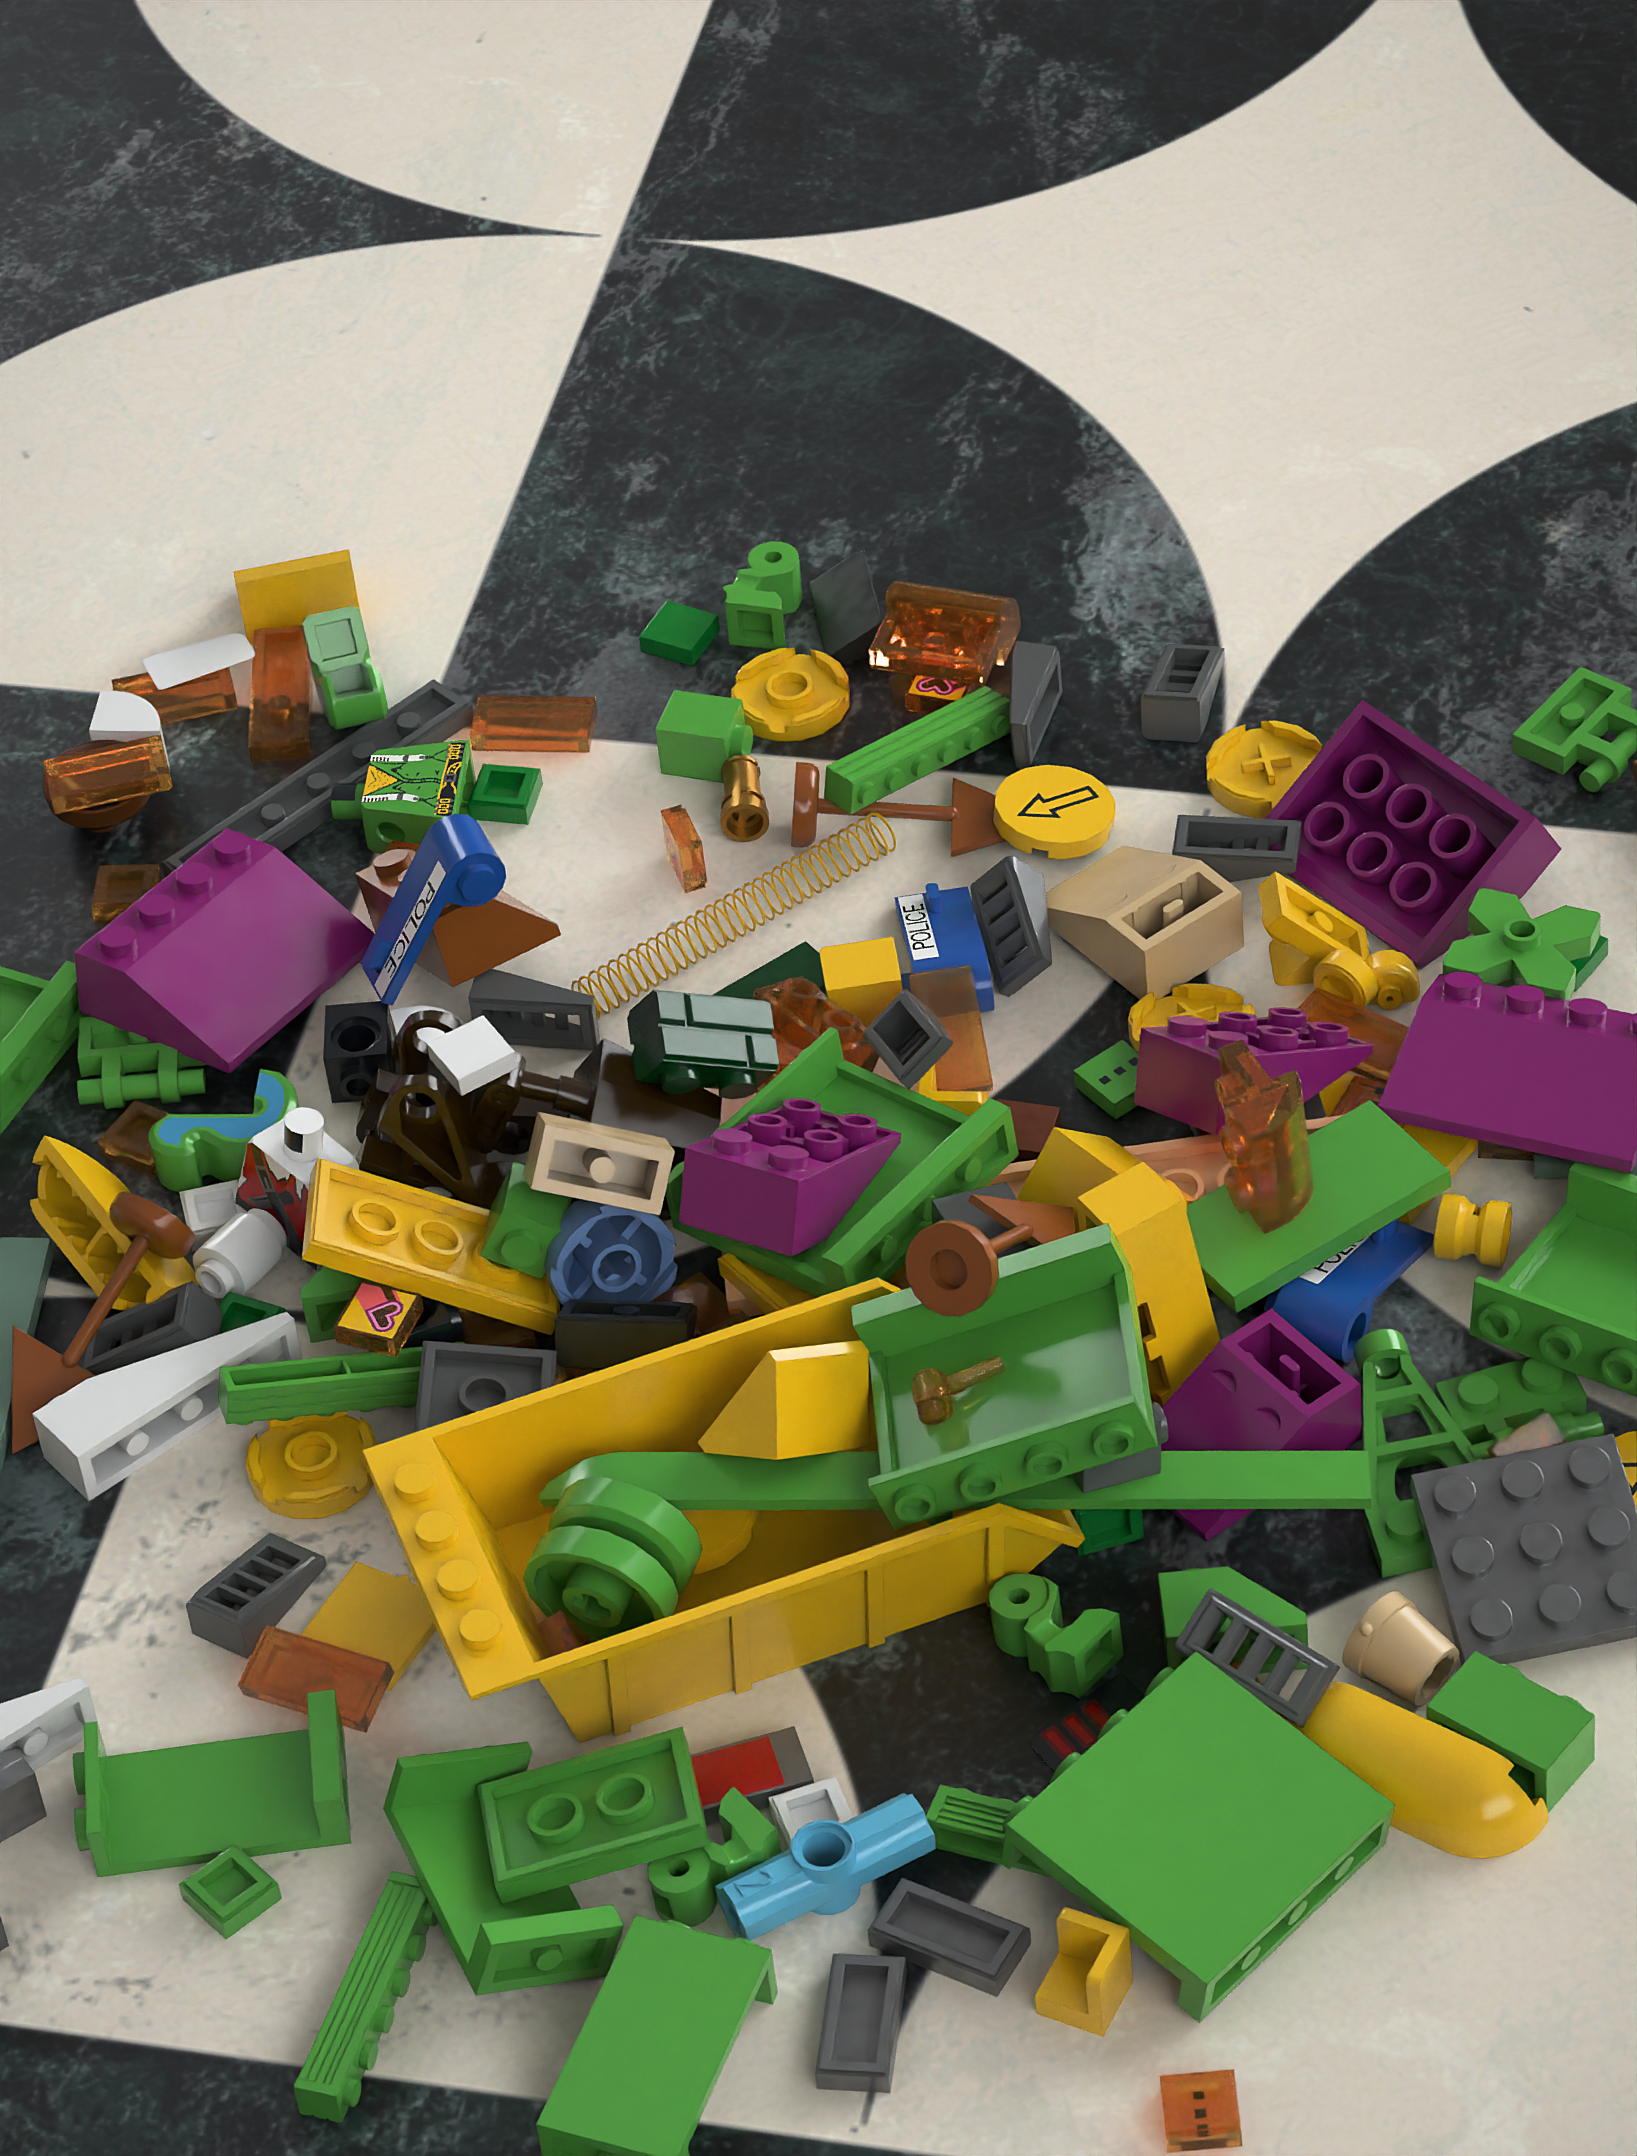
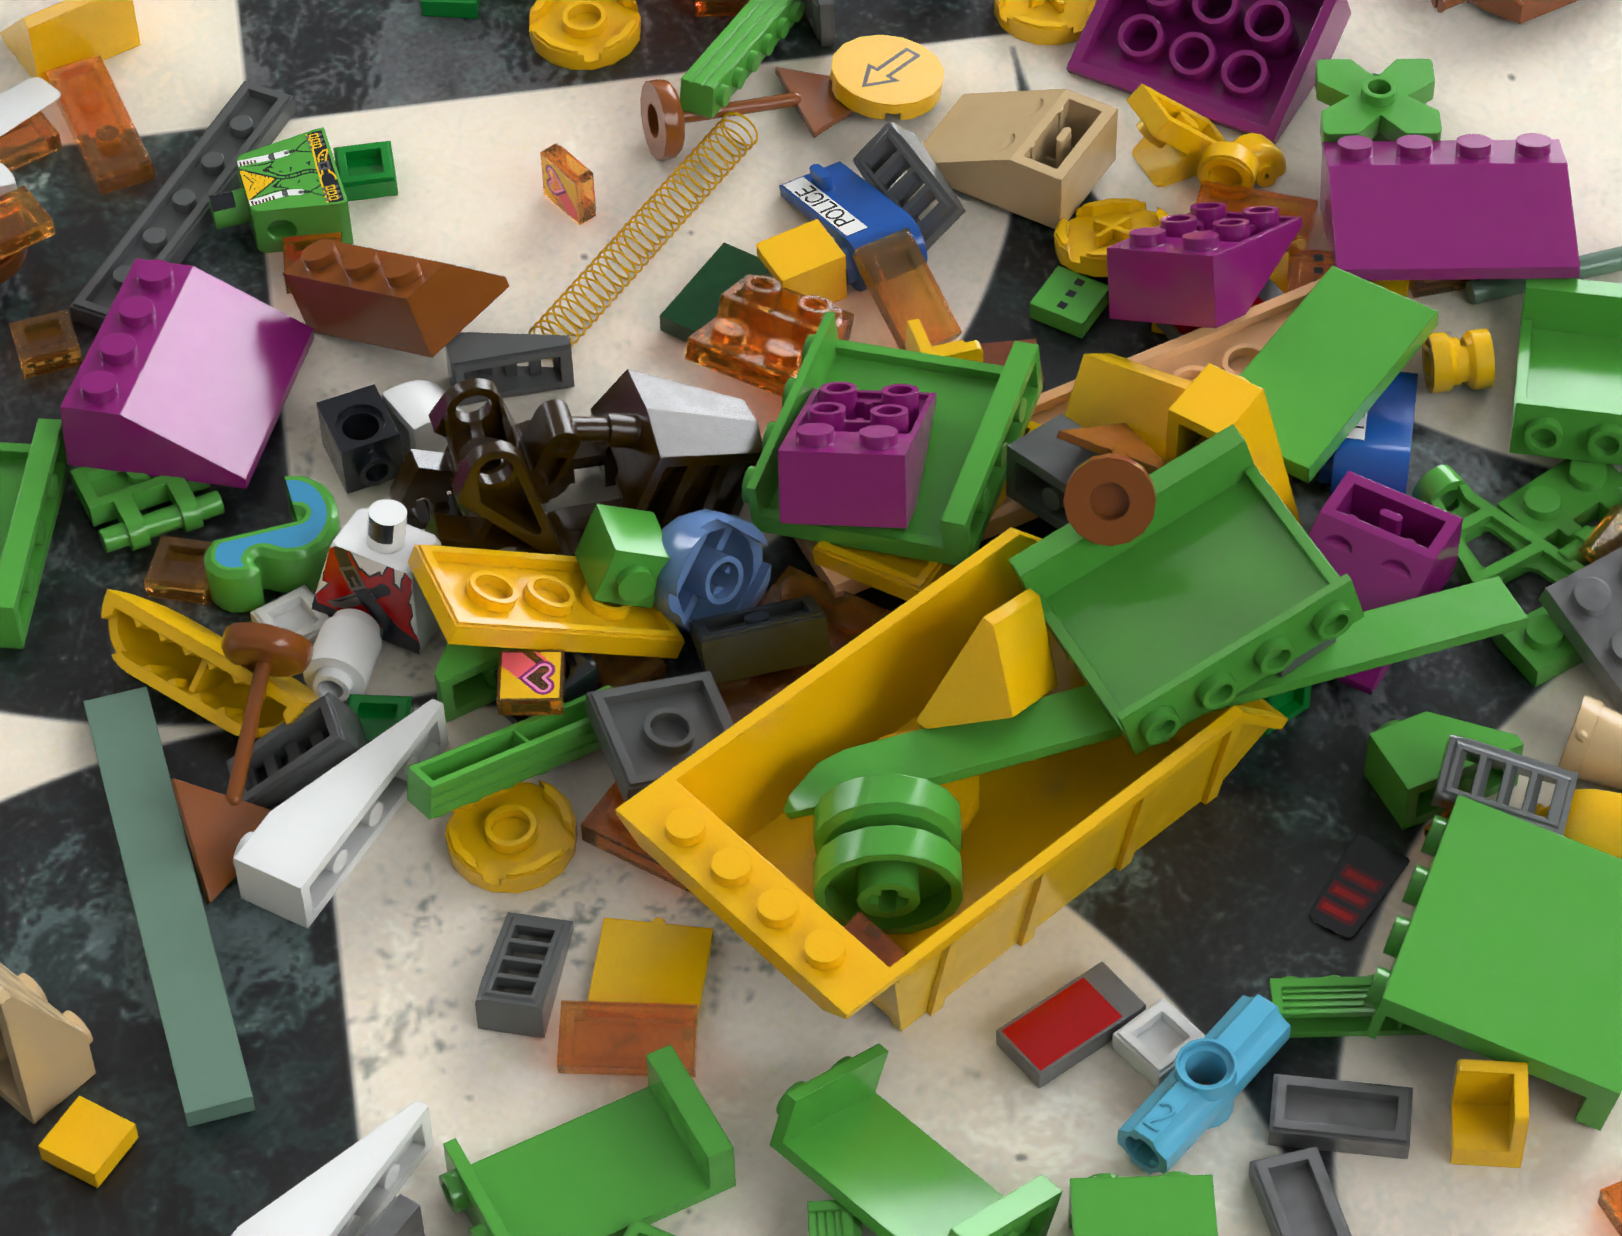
camera: 25 degrees left, 5 degrees up
(342, 668) = (160, 95): bright green animal -> none
(449, 866) = (406, 243): blue door -> none
(472, 1055) = (527, 412): white tile -> none
(533, 723) = (360, 100): clear orange tile -> none
(592, 1815) = (974, 1095): bright green tile -> none
(598, 1163) = (688, 485): tan brick -> none
(687, 1881) = (1088, 1118): bright green leg -> none
(701, 734) = (532, 78): bright green brick -> none
(702, 1043) = (720, 352): dark green brick -> none
(743, 805) = (600, 133): pearl gold pin -> none
(908, 1038) = (896, 307): dark grey slope -> none
(934, 1390) = (1124, 618): clear orange hand -> none
(1030, 1625) = (1262, 809): bright green leg -> none
(1225, 843) = (1057, 67): dark grey slope -> none
(1264, 1139) = (1282, 315): clear orange brick -> none

